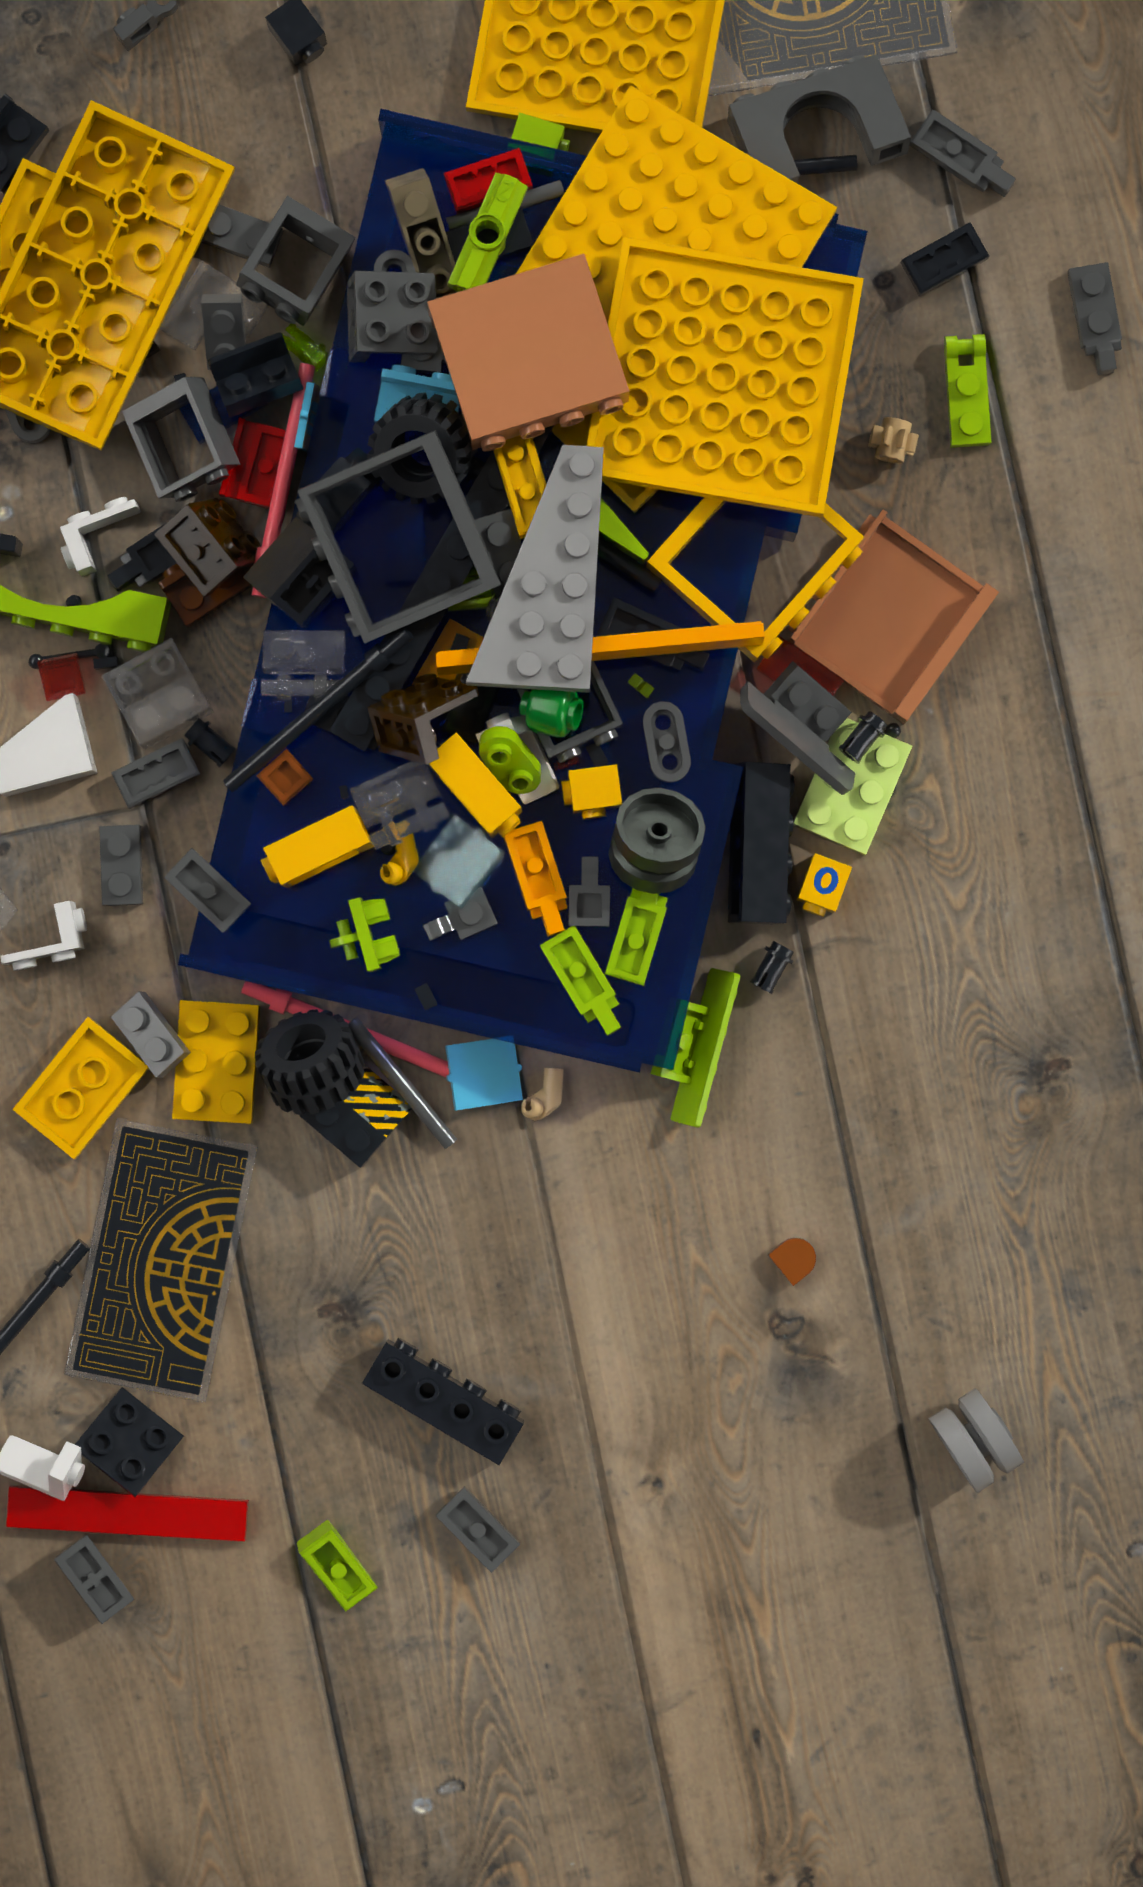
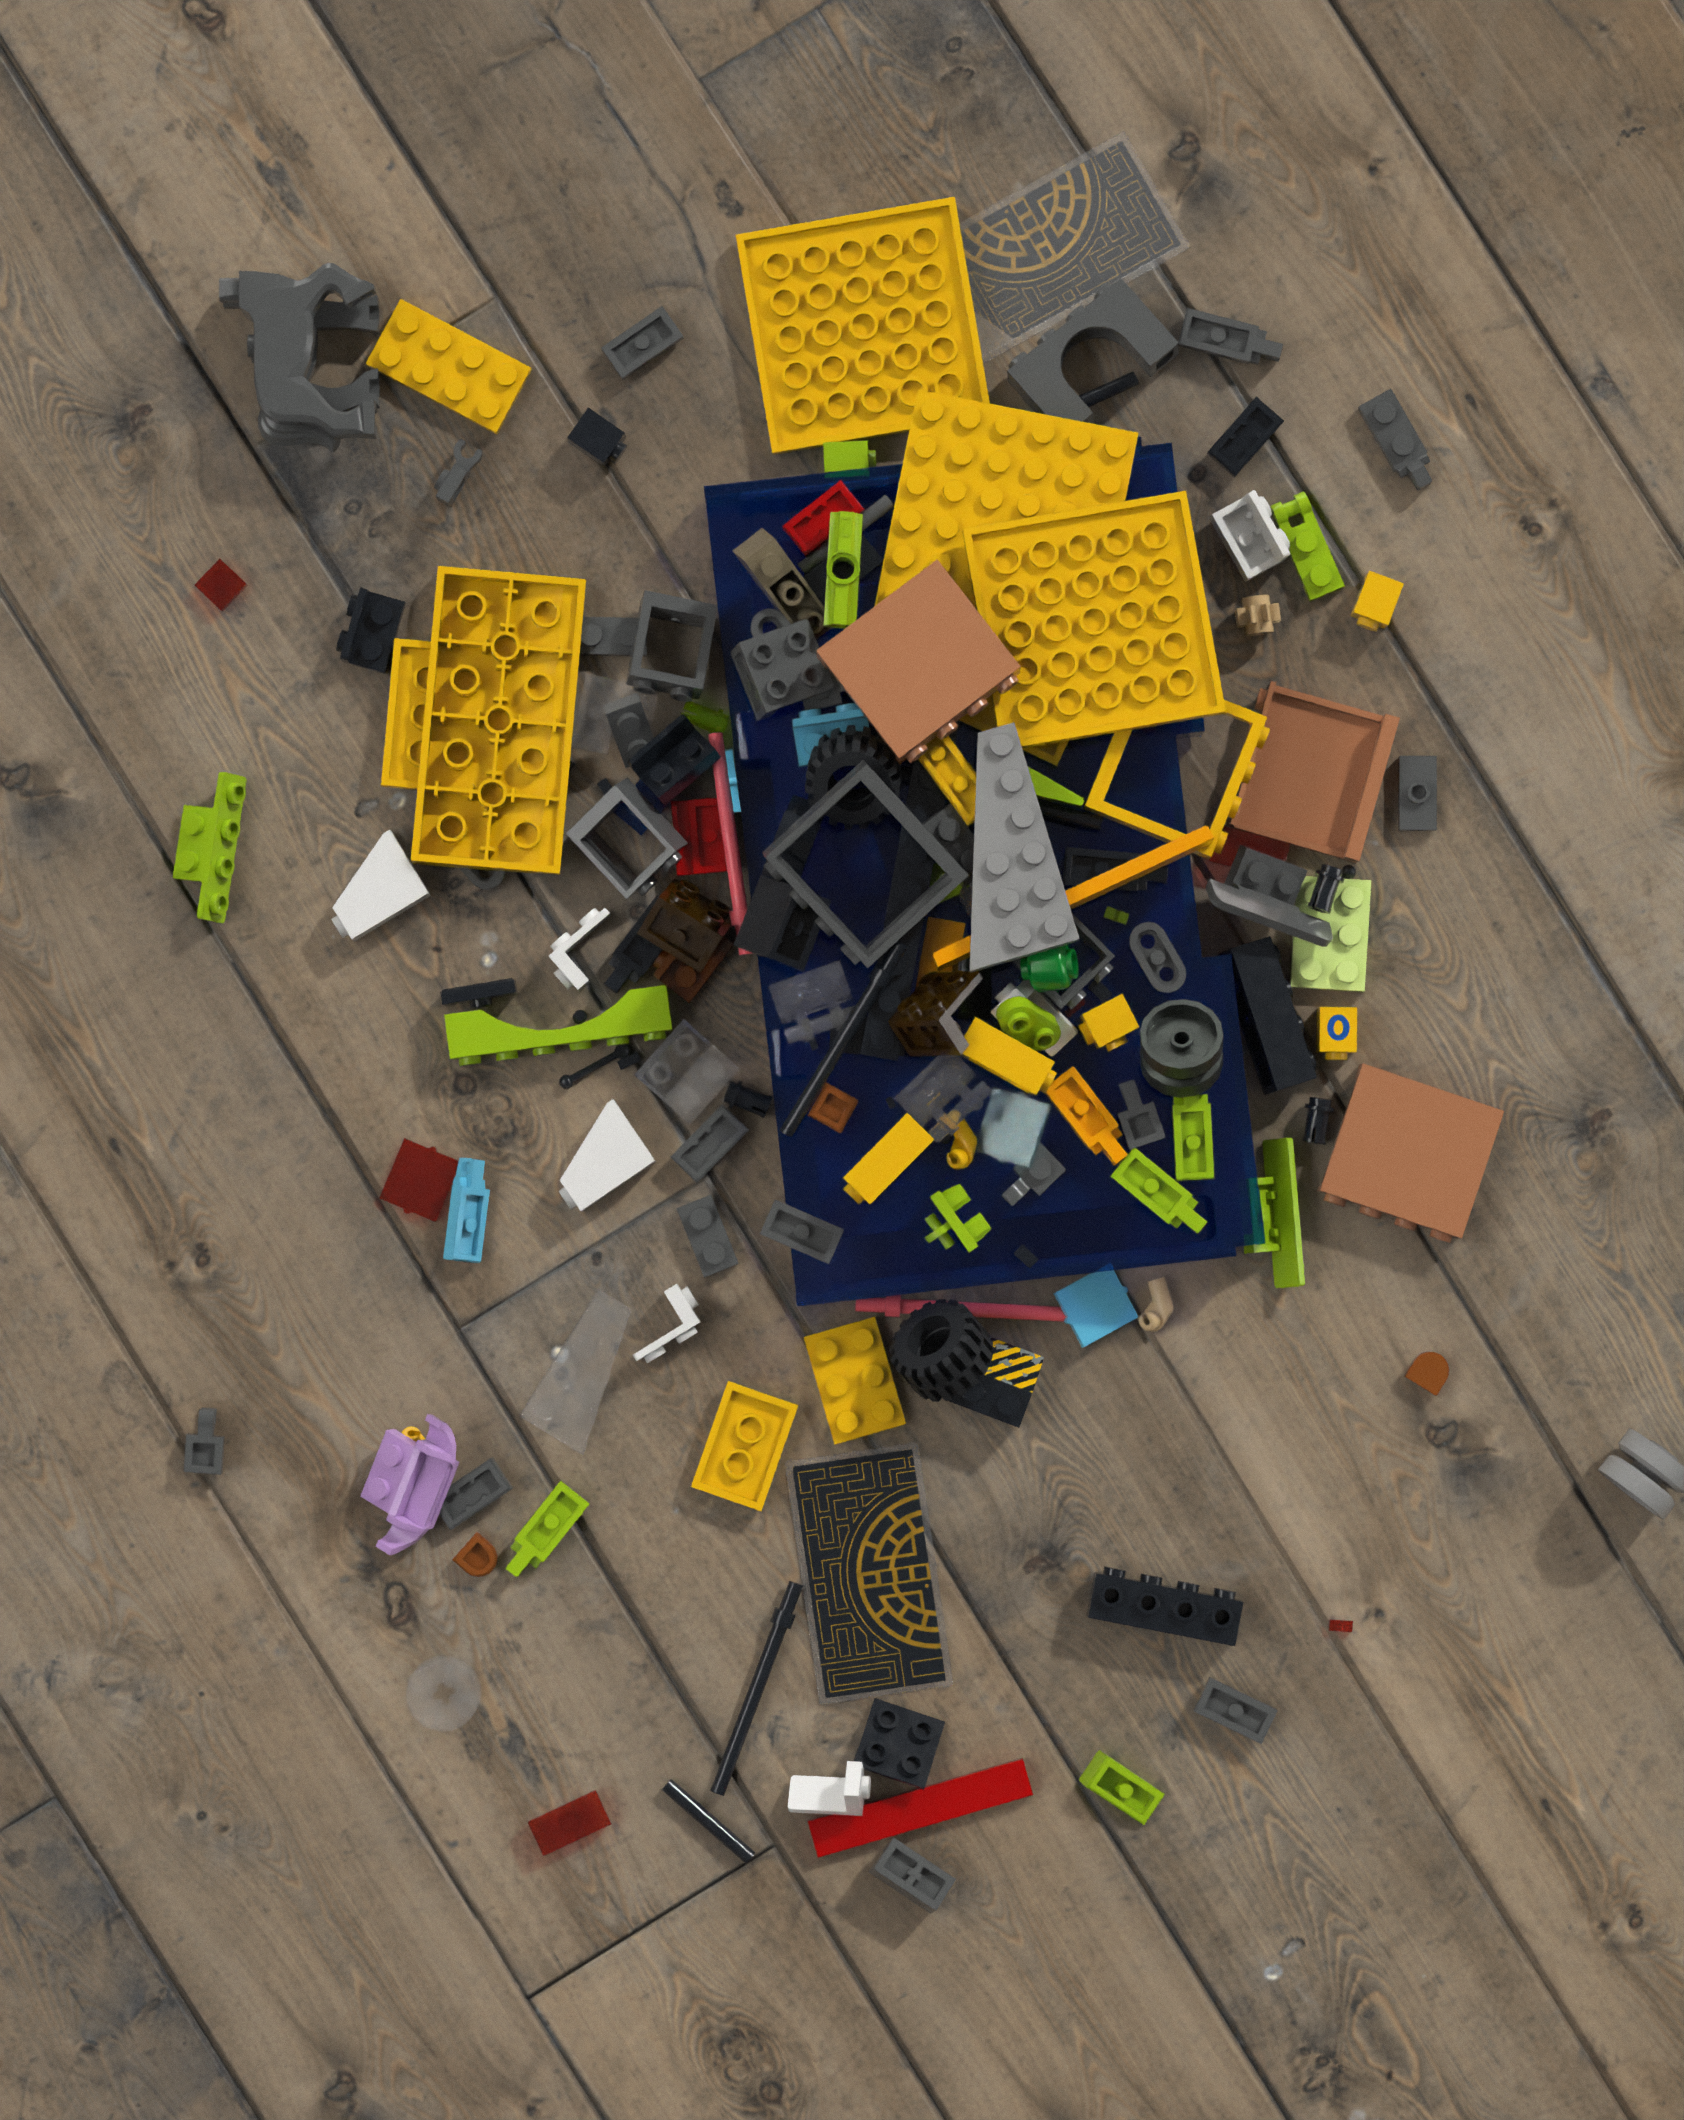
camera: 25 degrees left, 0 degrees up
(61, 676) = (594, 1087): clear red tile -> none
(150, 1034) = (789, 1376): plate -> none
(401, 1083) = (1027, 1341): dark grey bar -> none
(460, 642) = (945, 937): black piece -> none
(615, 1482) = (1340, 1625): none -> clear red piece
(854, 1032) = (1410, 1153): none -> nougat panel
(915, 358) = (1251, 535): none -> white bracket
(990, 675) = (1417, 793): none -> dark grey plate
(1017, 468) = (1376, 601): none -> yellow brick

